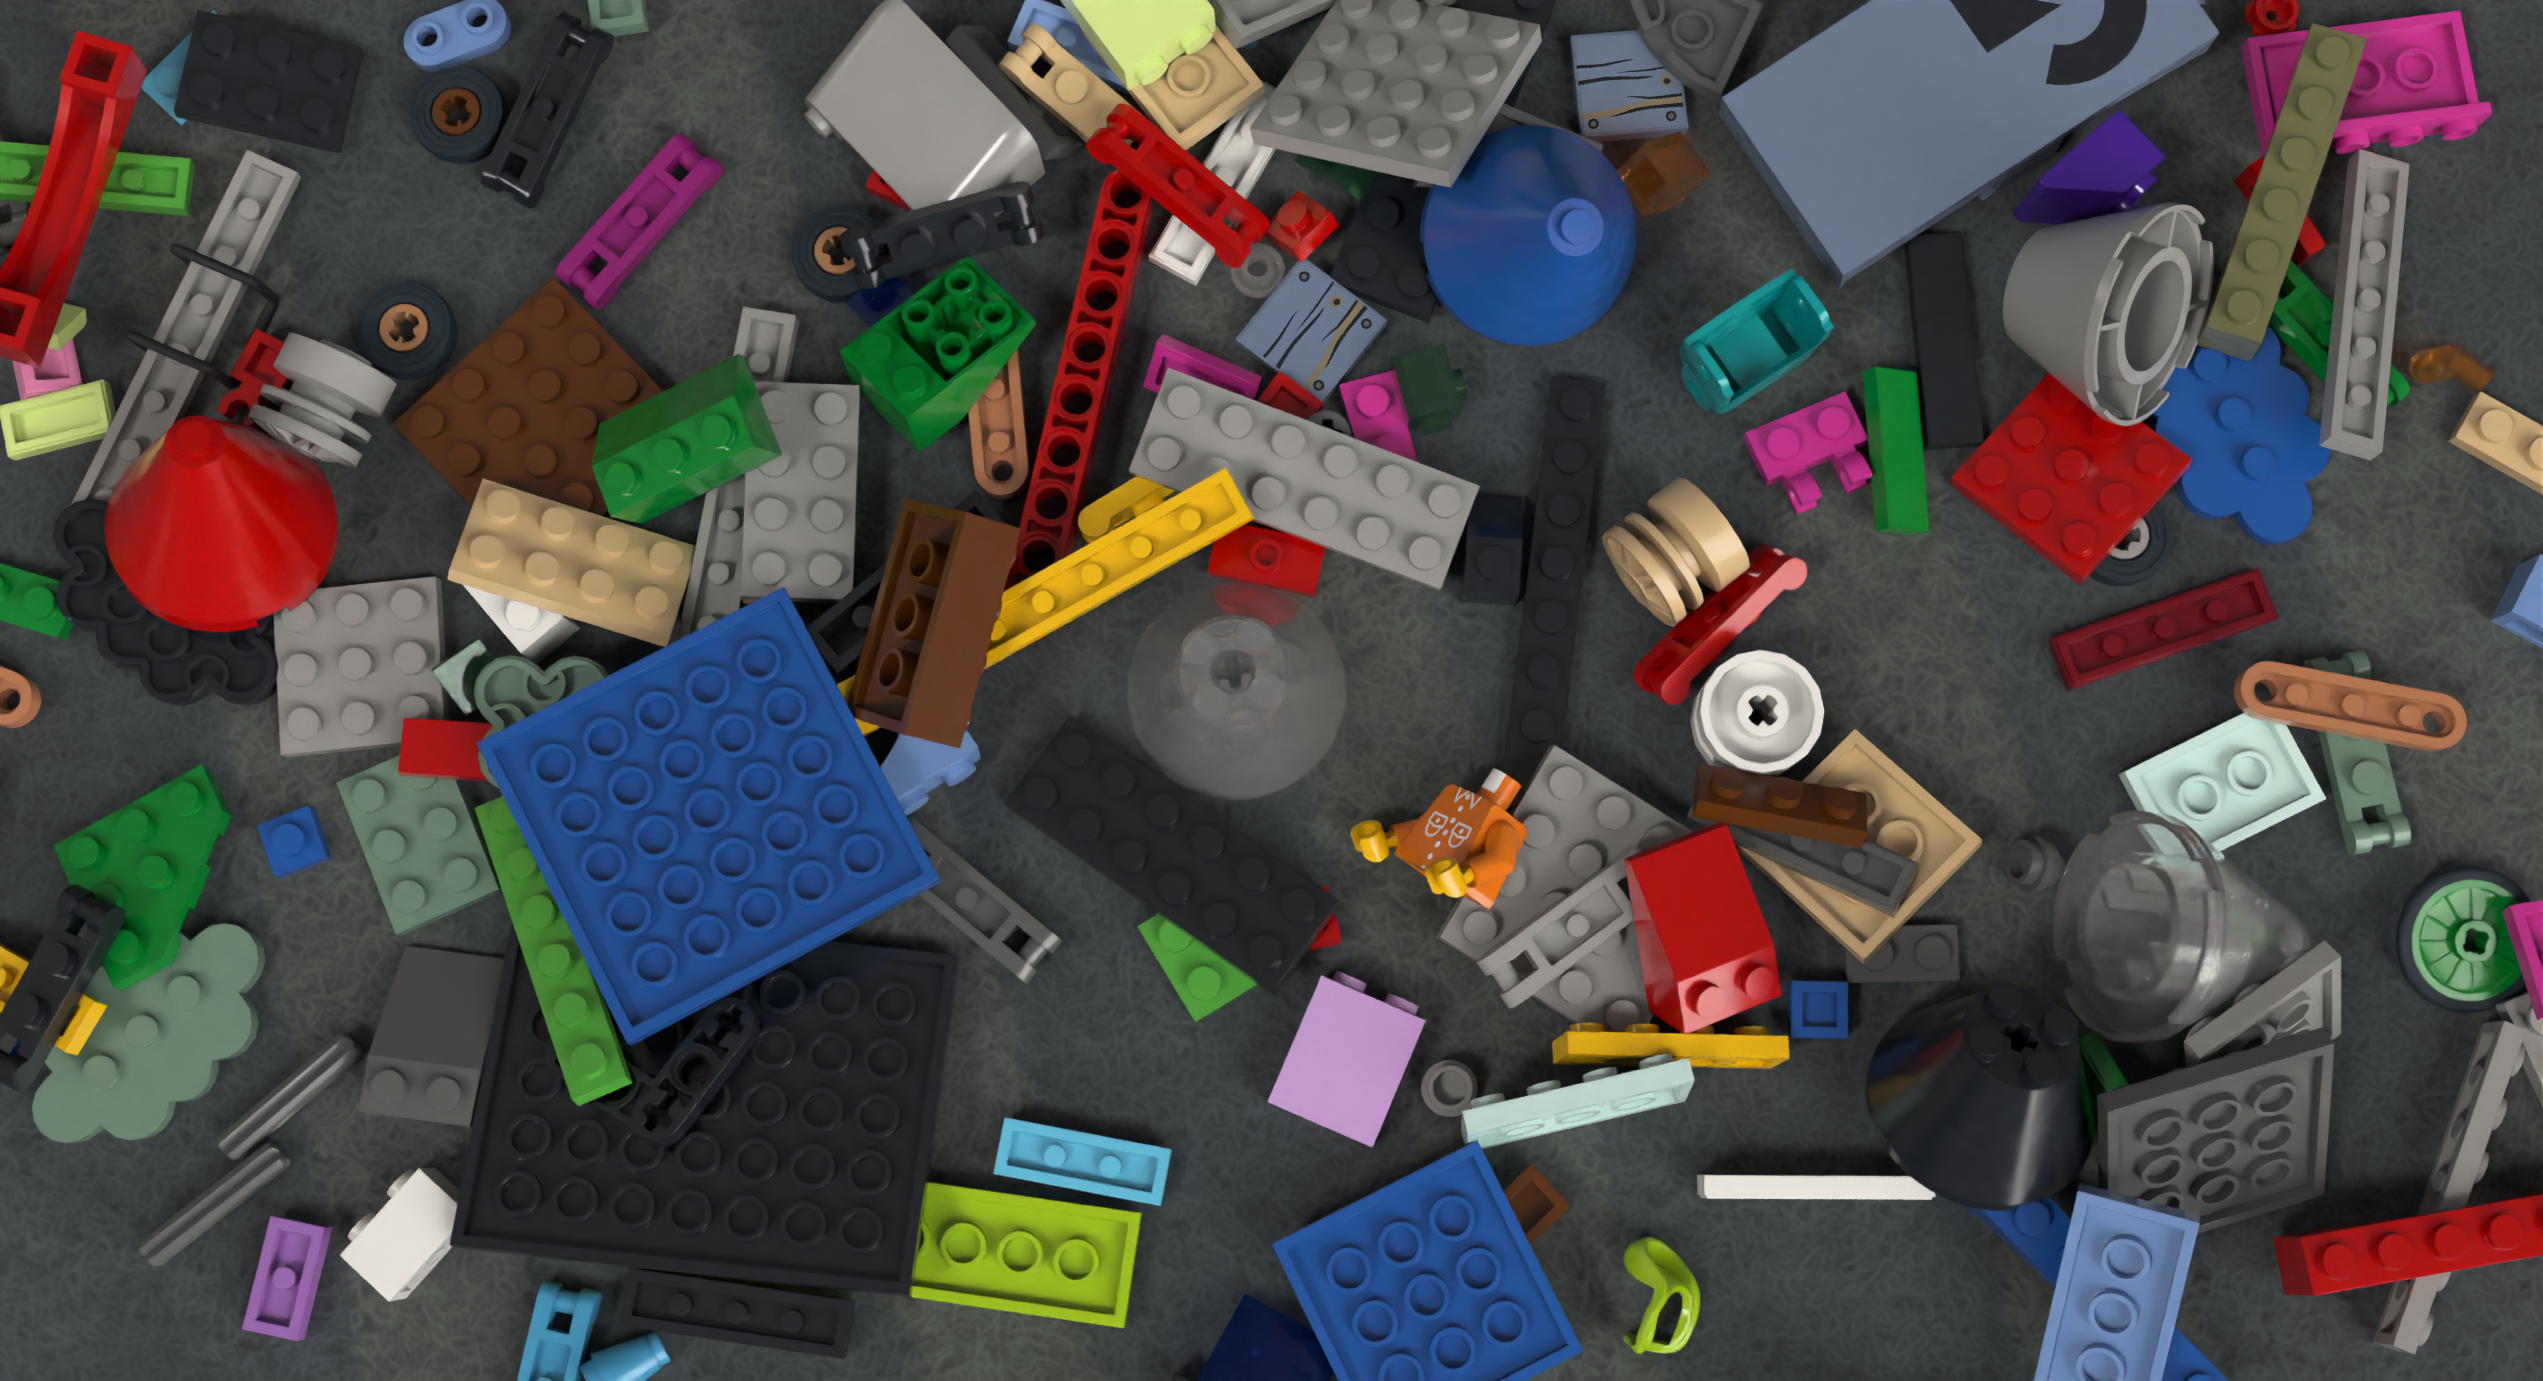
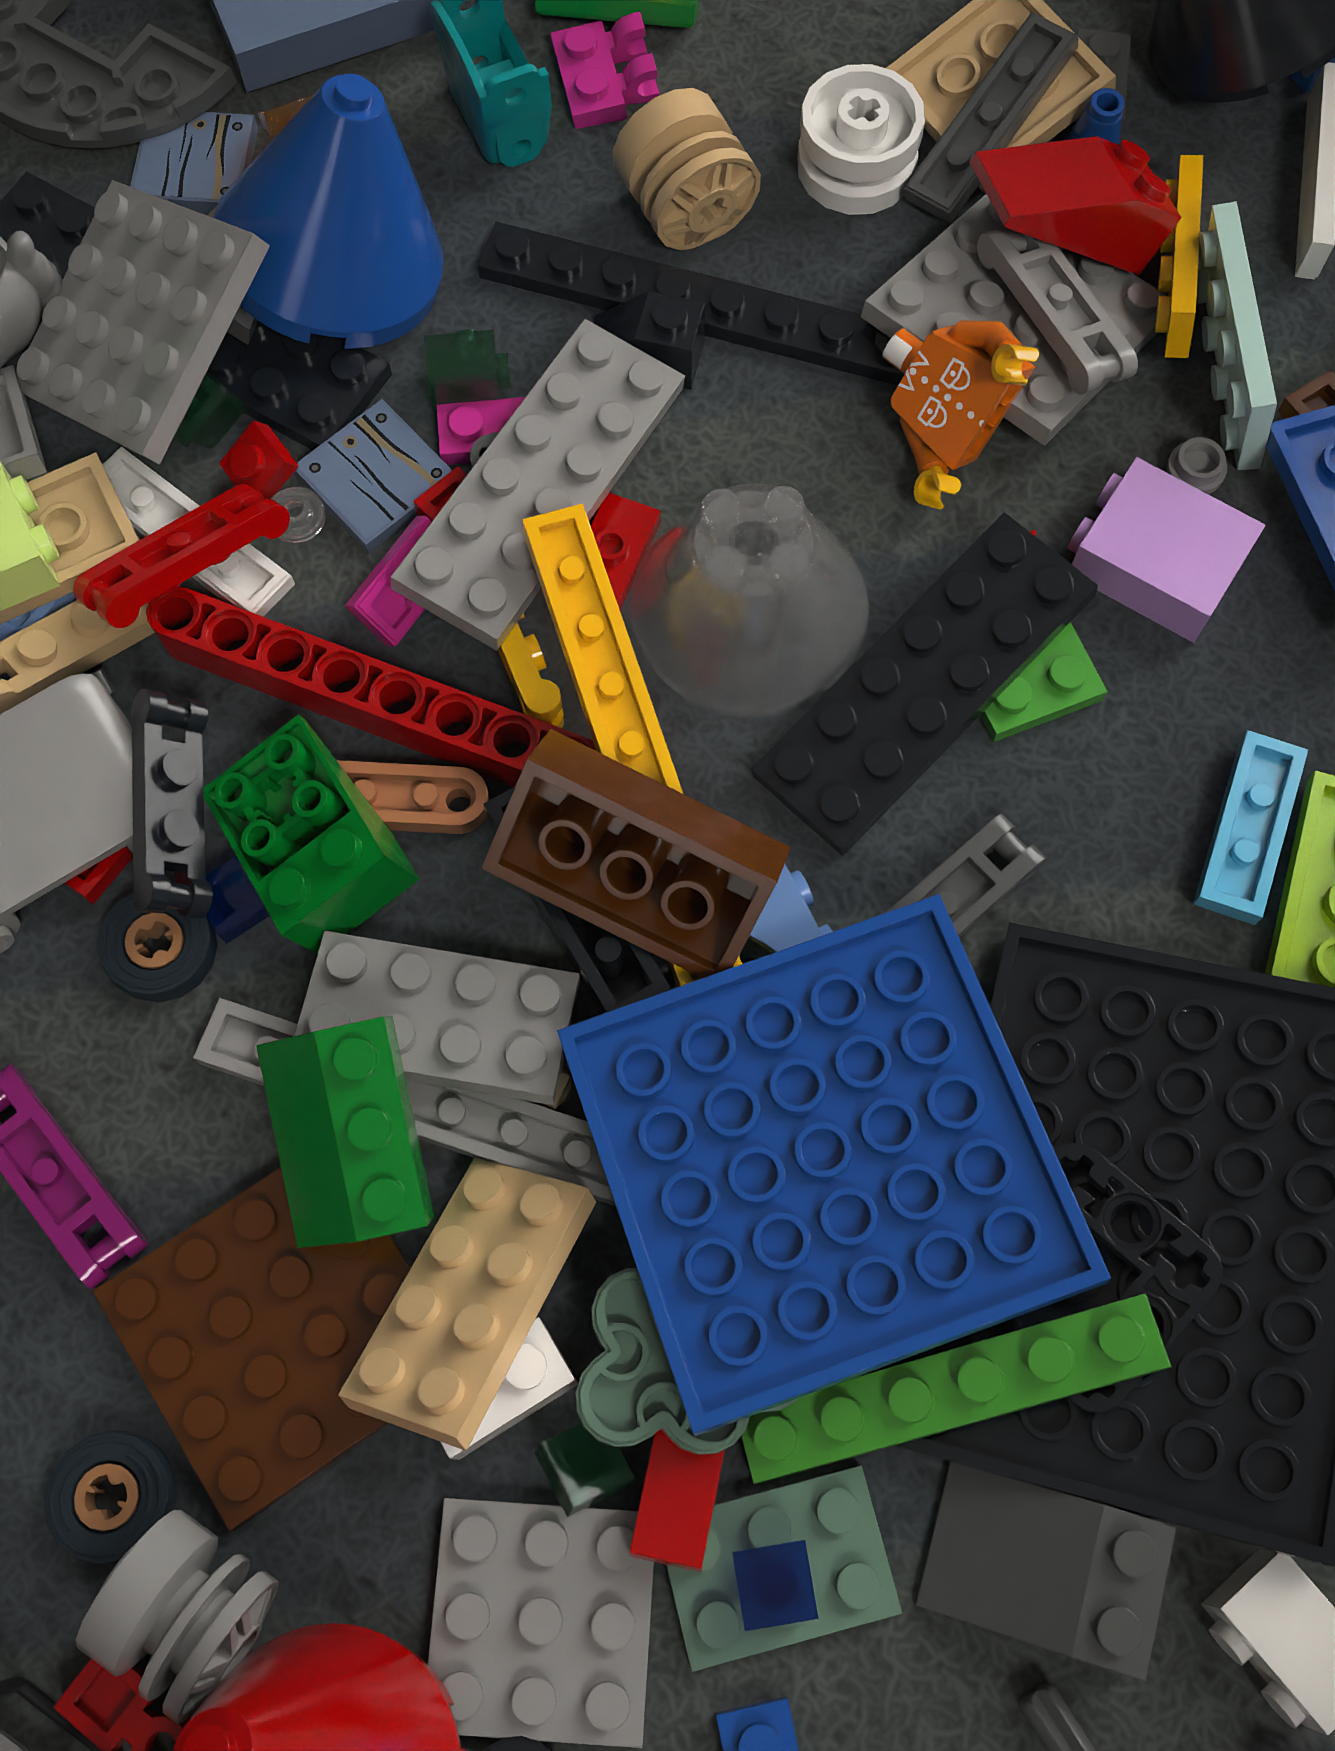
camera: 85 degrees left, 10 degrees down
(395, 829) = (774, 1585): none -> clear blue plate
(1712, 626) = (780, 170): red plate -> none
(1780, 805) = (957, 116): reddish brown plate -> none
(1798, 955) = (1100, 117): none -> blue cone
(1817, 1010) = (1157, 138): blue plate -> none

